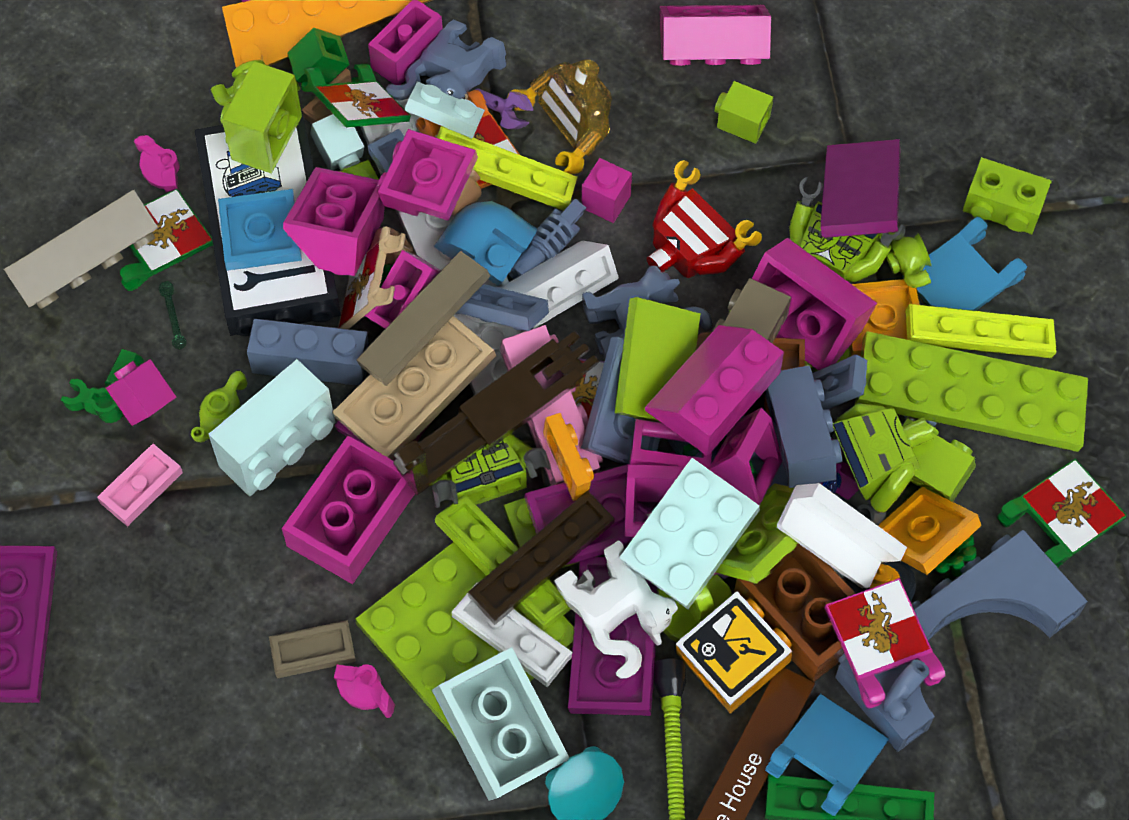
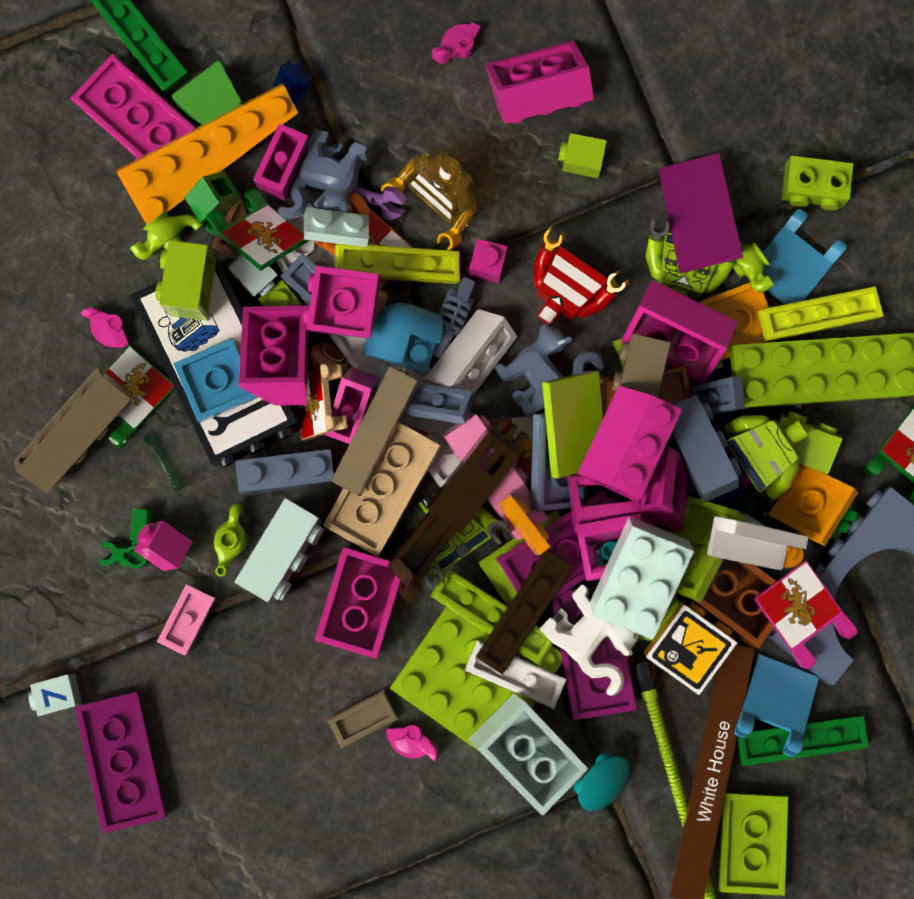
camera: 15 degrees left, 20 degrees up
(903, 687) = (826, 647): sand blue arm -> none

